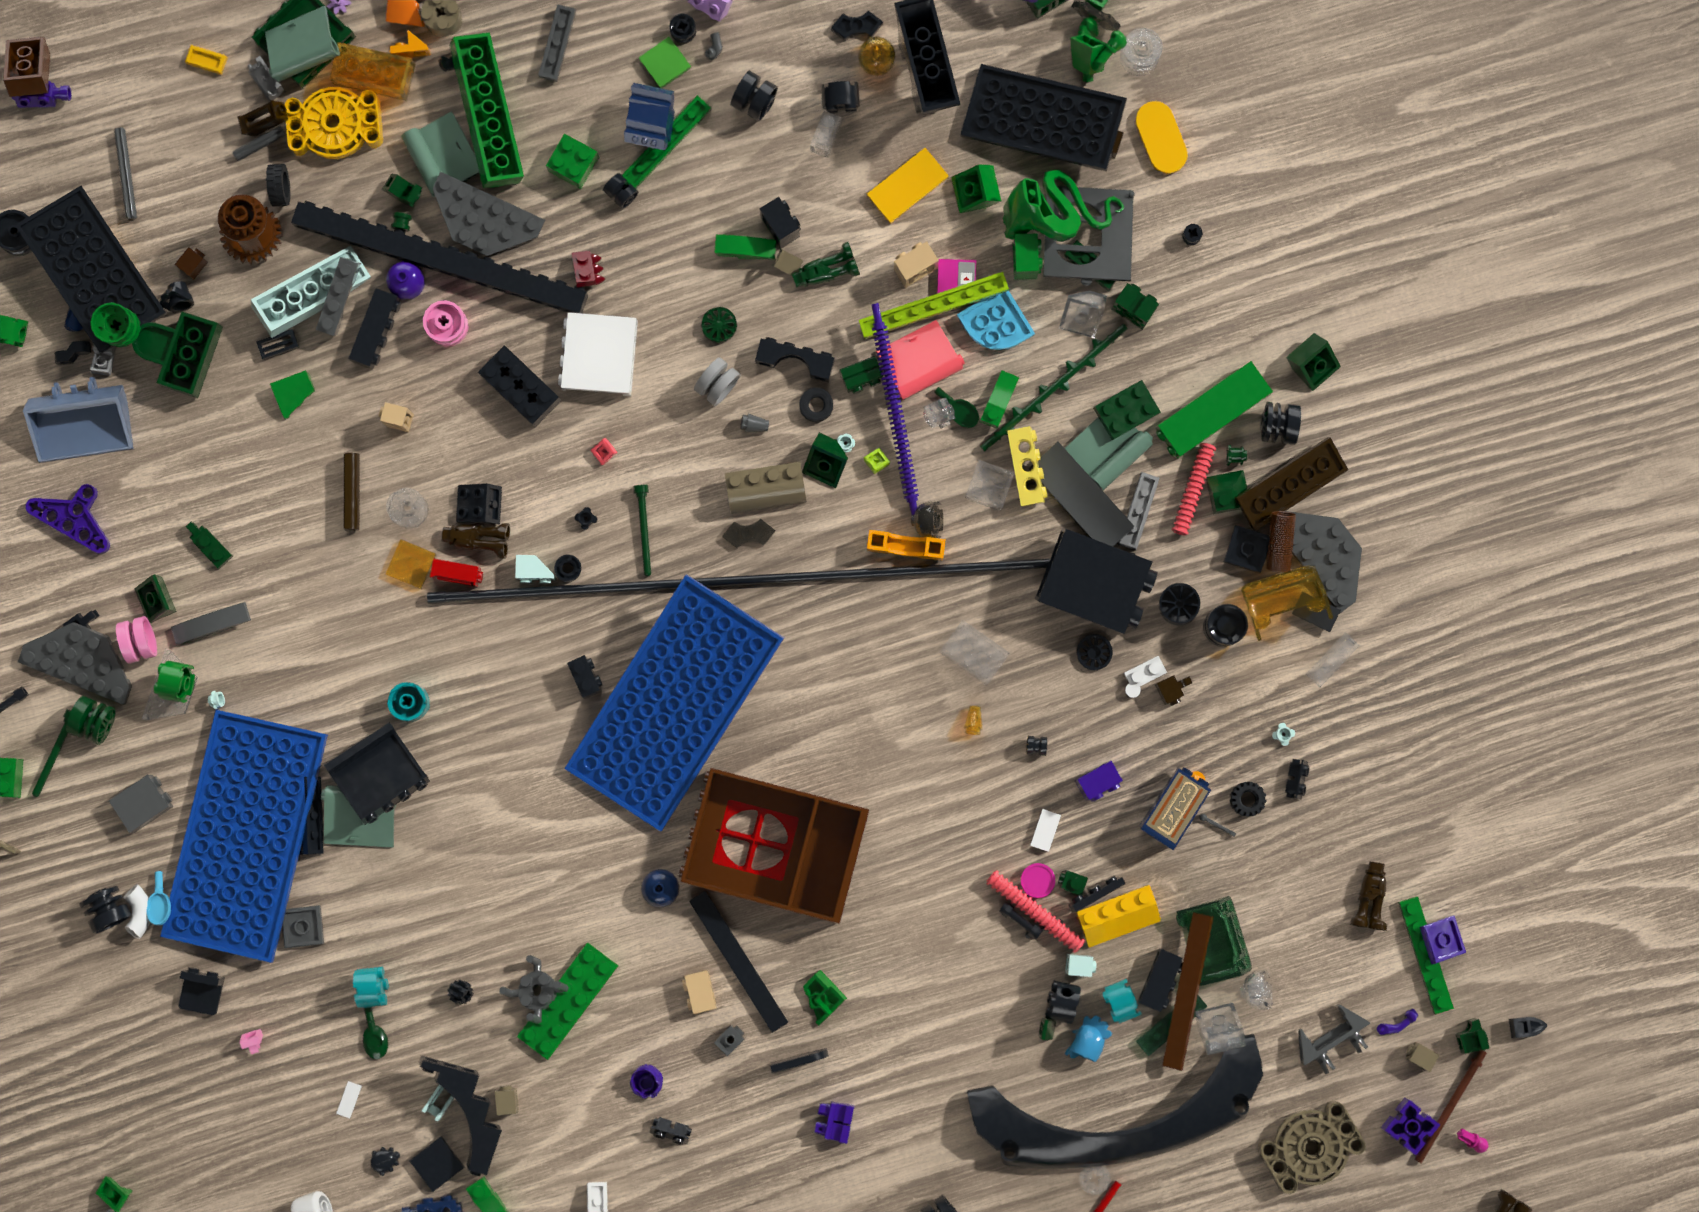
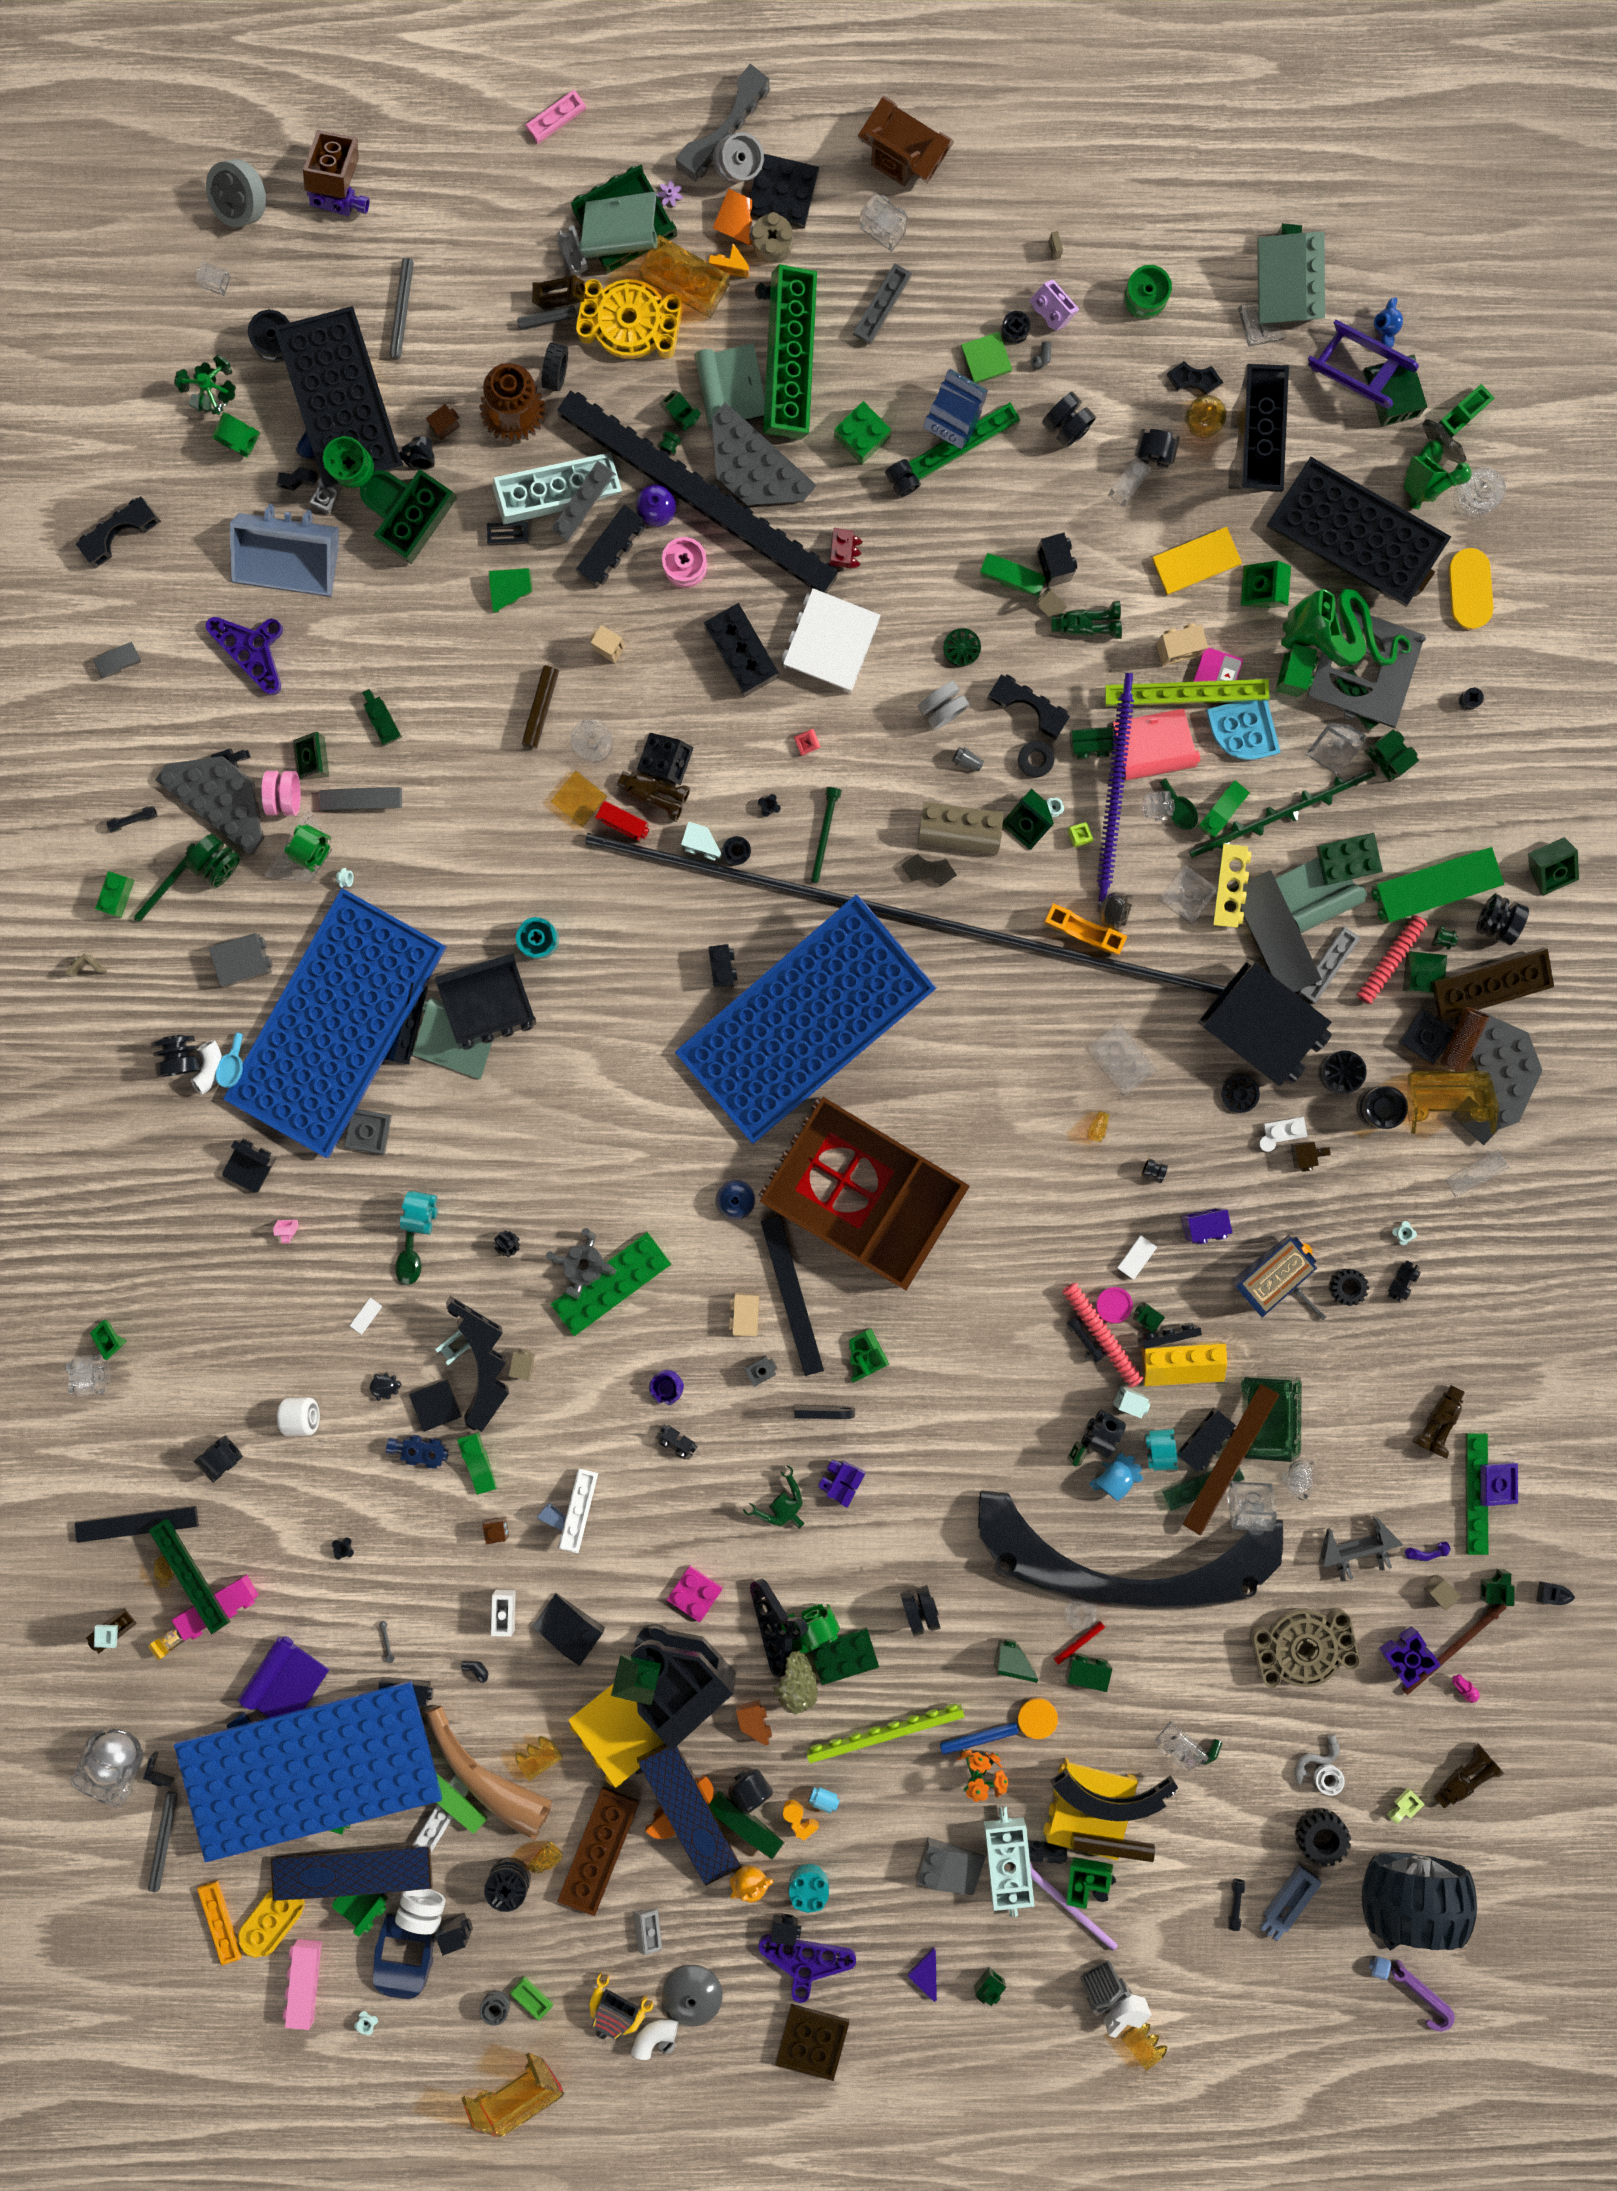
camera: 15 degrees right, 5 degrees up
(206, 59) = (517, 213): yellow tile -> none
(788, 1162) = (783, 1506): none -> dark green piece

